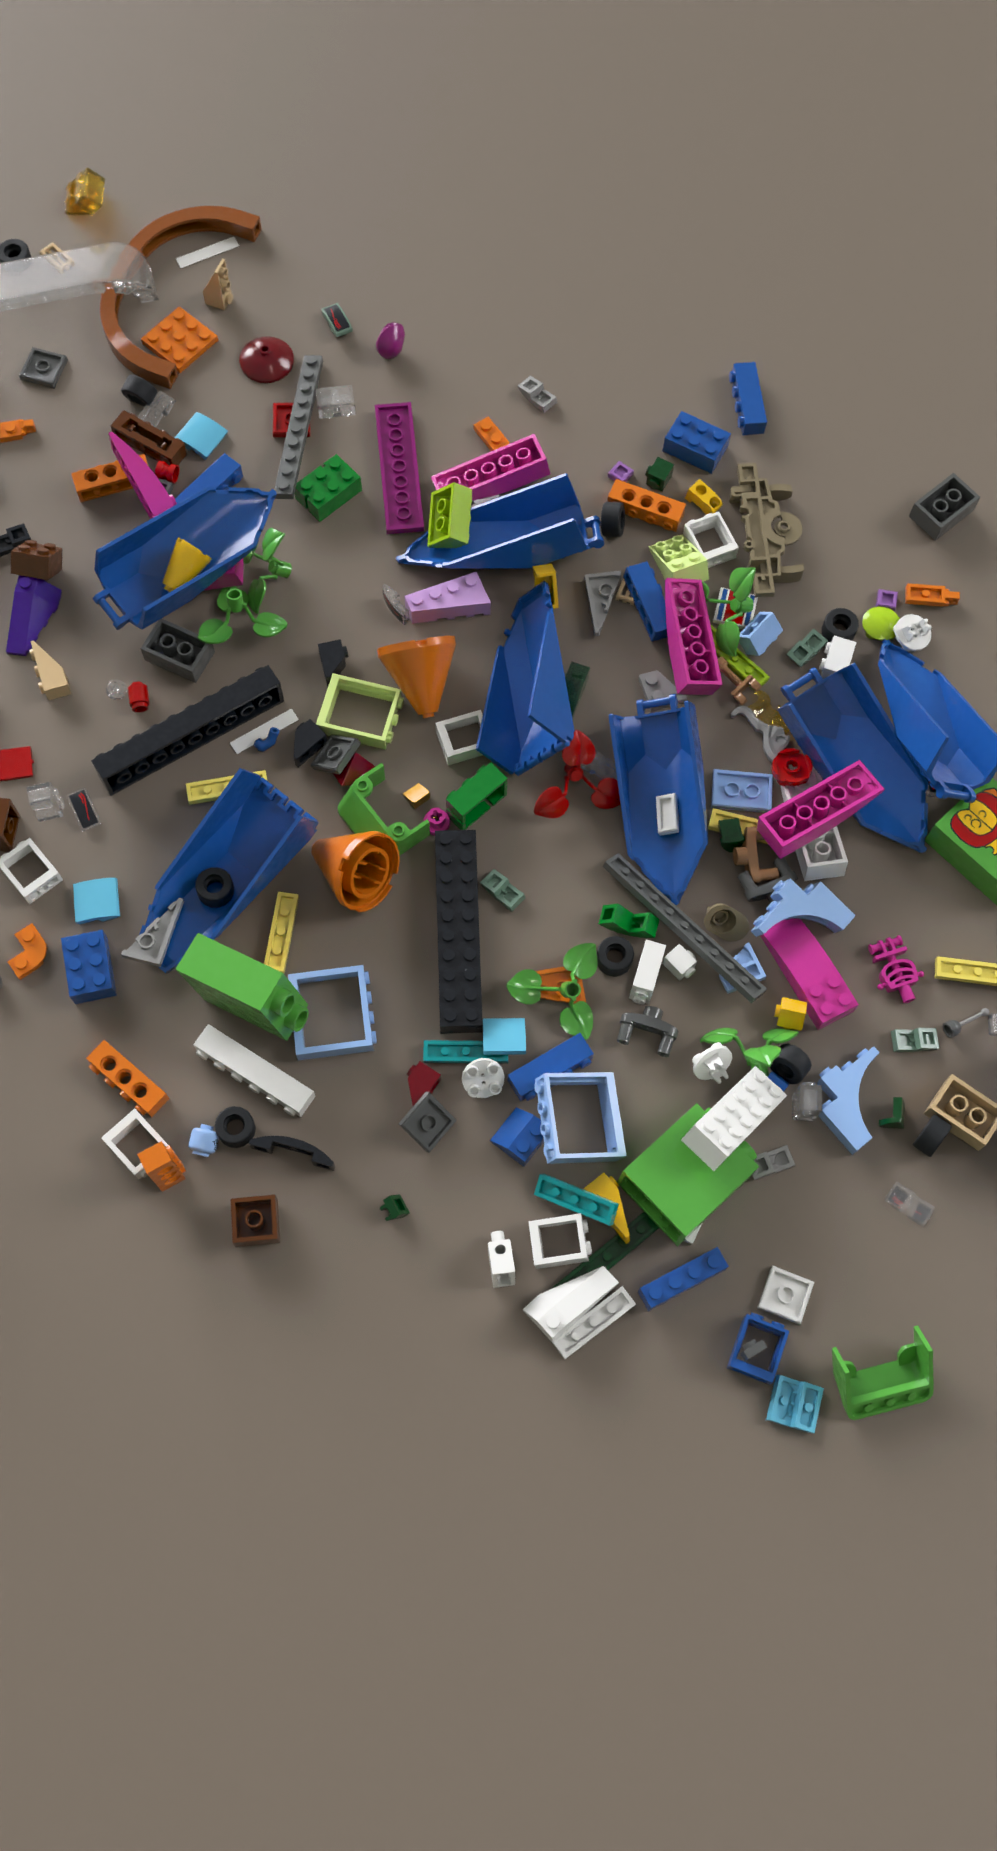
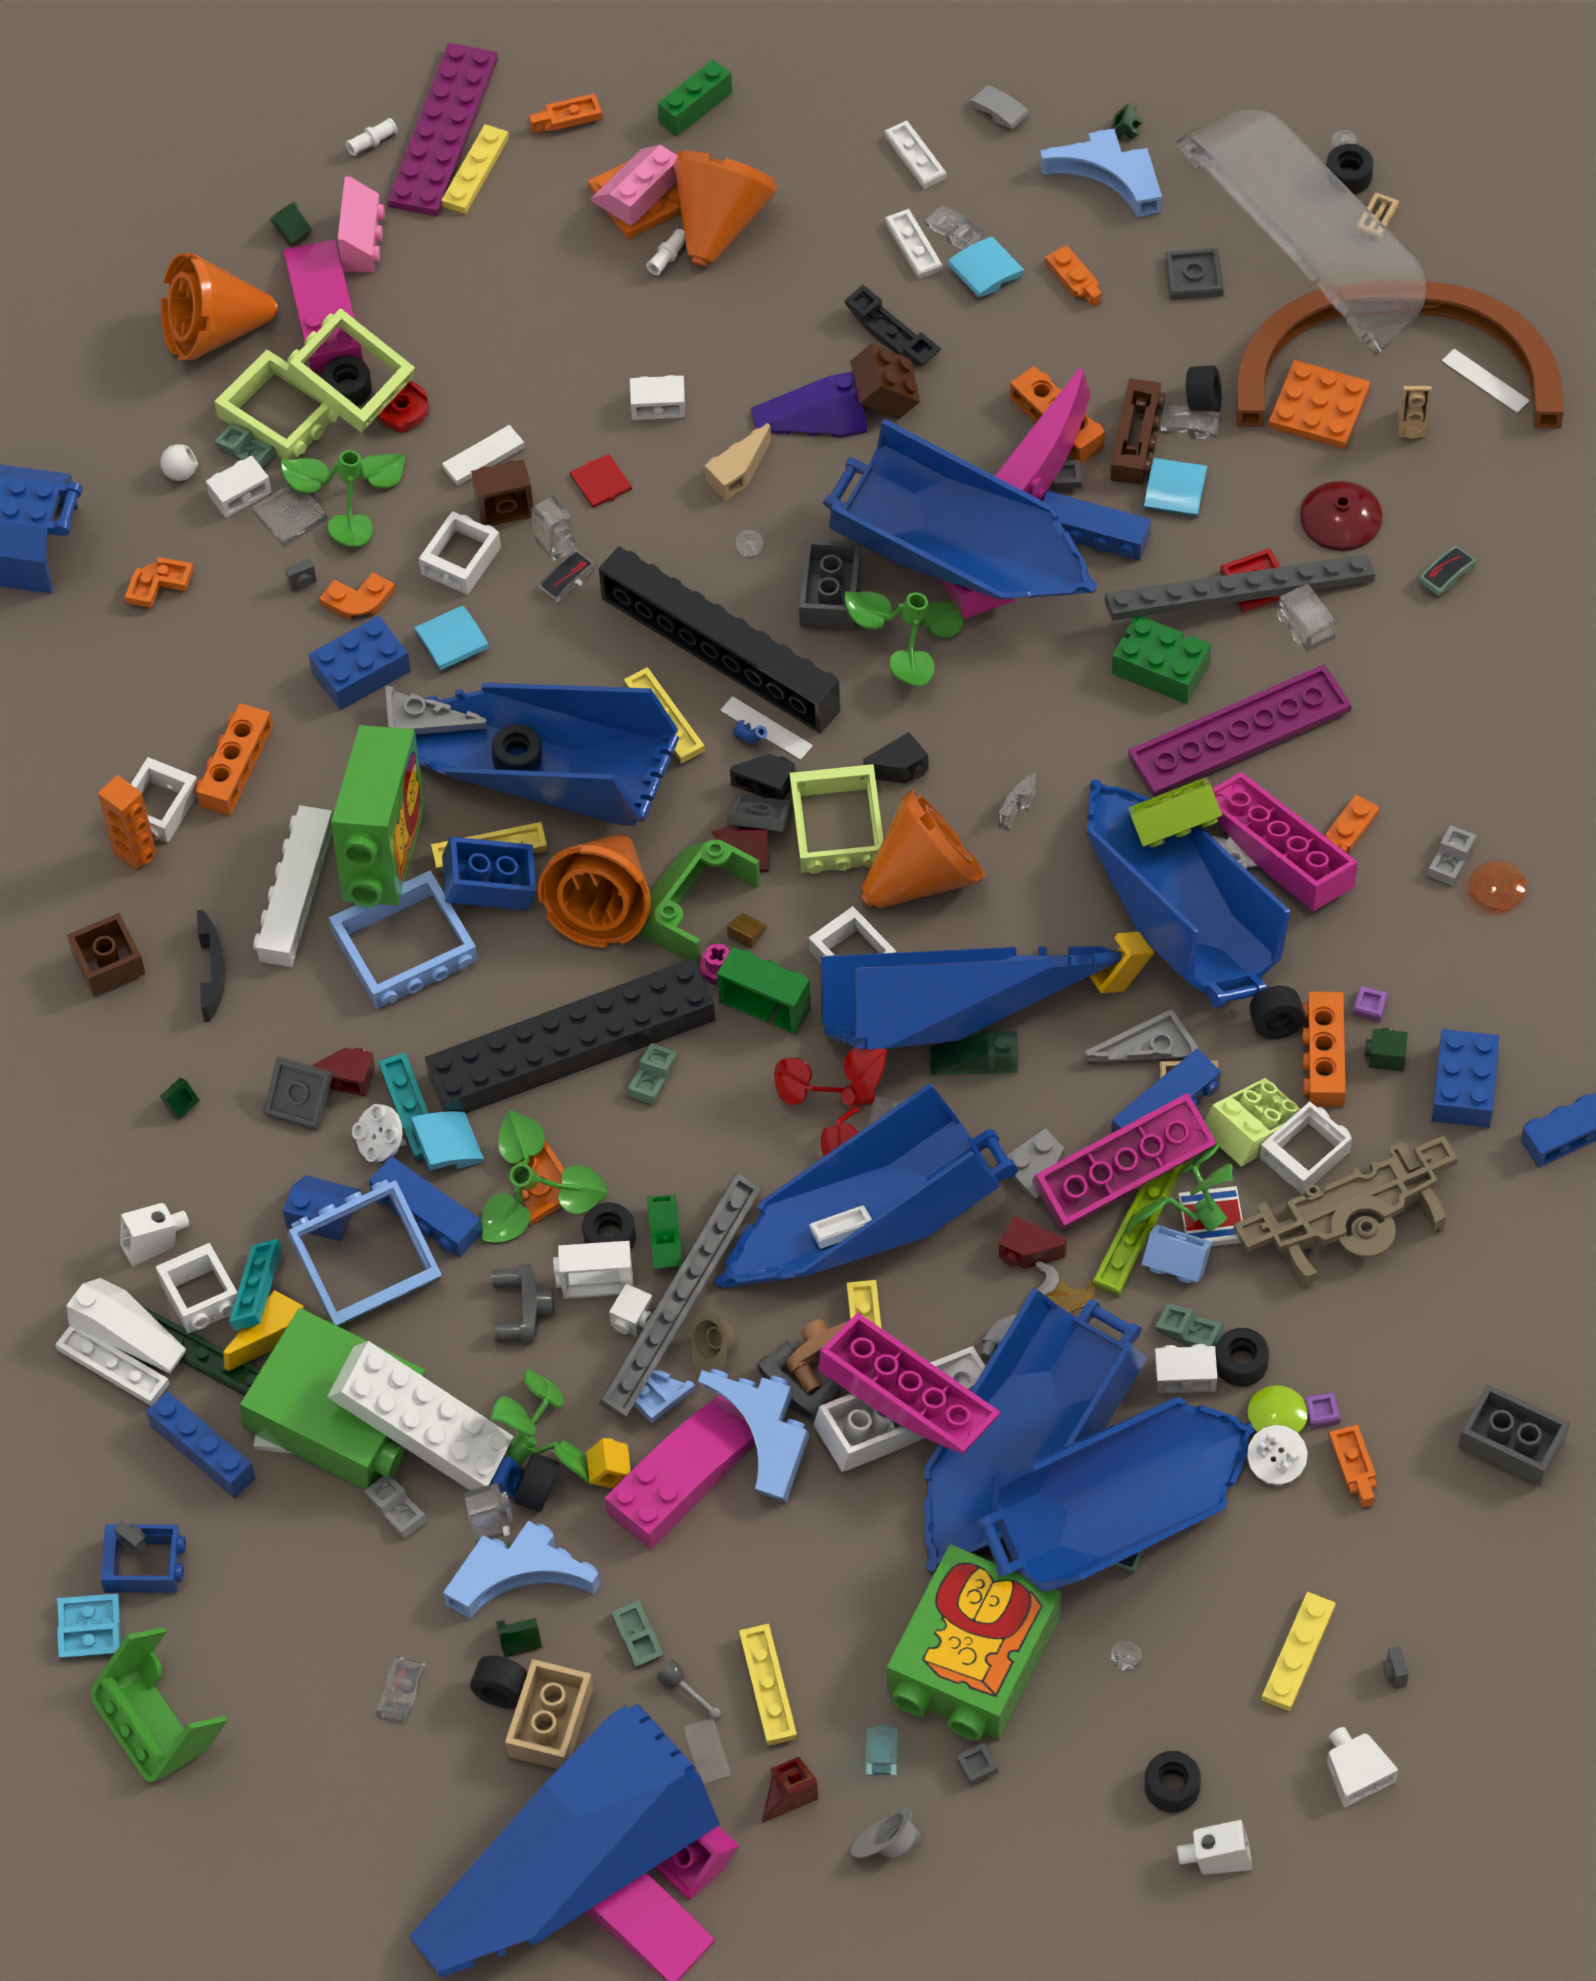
camera: 75 degrees right, 10 degrees down
(84, 193) = (1497, 202): clear yellow slope -> none
(138, 697) = (748, 570): red brick -> none
(167, 471) = (1096, 470): red wheel -> none
(184, 564) = (940, 532): yellow cone -> none
(203, 1140) = (187, 866): light blue head -> none
(227, 1116) = (213, 878): black tyre -> none
(278, 568) = (1007, 646): bright green plant -> none
(309, 936) = (488, 873): none -> blue brick
(390, 340) = (1436, 643): magenta hat -> none
(448, 600) = (1054, 861): lavender wedge -> none
(568, 379) = (1497, 885): none -> clear orange dish
(704, 497) = (1375, 1117): yellow leg -> none
(712, 1063) = (498, 1379): white plate -> none
(719, 713) = (1027, 1244): none -> dark red slope
(730, 834) = (842, 1307): dark green tile -> none
(741, 685) = (1092, 1265): medium nougat bar -> none
(741, 791) = (924, 1312): light blue tile -> none
(786, 1295) = (226, 1576): white tile -> none
(789, 777) = (961, 1348): red plate -> none
(901, 982) = (715, 1593): dark pink torso -> none

